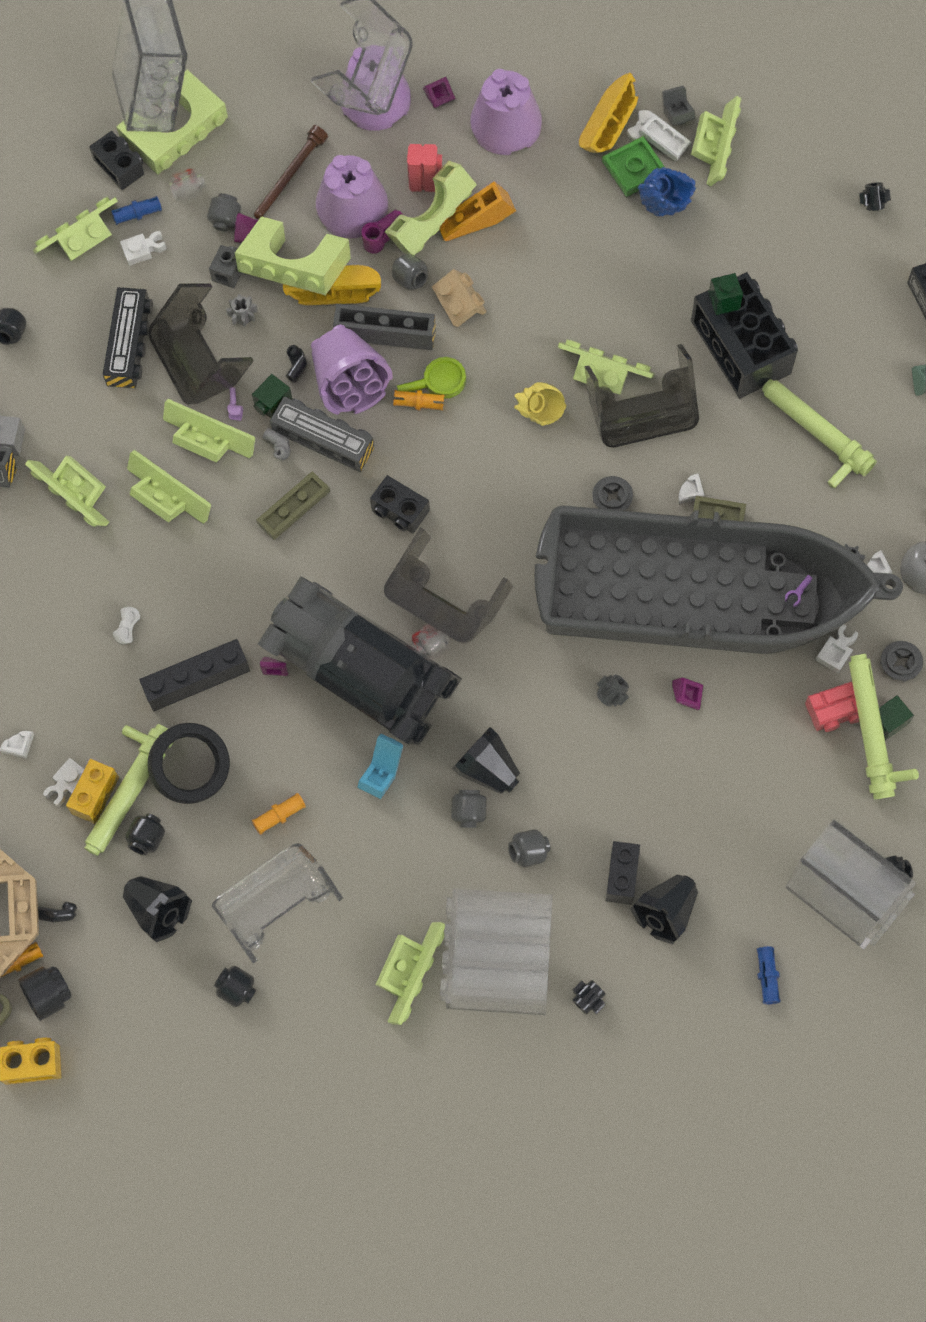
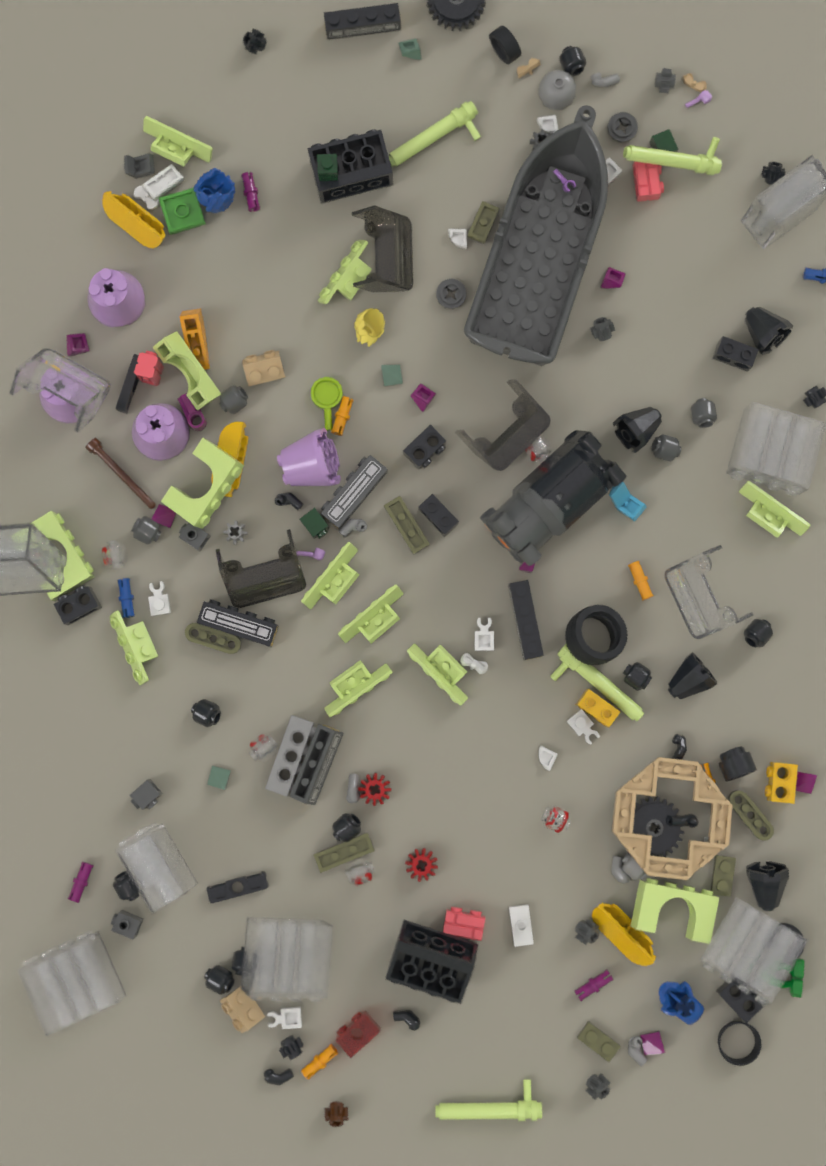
camera: 80 degrees left, 15 degrees up
(36, 1096) = (805, 782): none -> magenta slope
(101, 307) = (204, 638): none -> olive plate
(109, 586) = (442, 669): none -> yellowish green bracket
(162, 631) = (484, 639): none -> white plate
(313, 538) = (438, 515): none -> black brick
(387, 155) = (129, 387): none -> black piece
(388, 326) = (278, 427): dark grey brick -> none
(467, 490) = (422, 396): none -> magenta slope
(487, 447) = (391, 375): none -> sand green slope
(681, 235) = (250, 191): none -> magenta pin

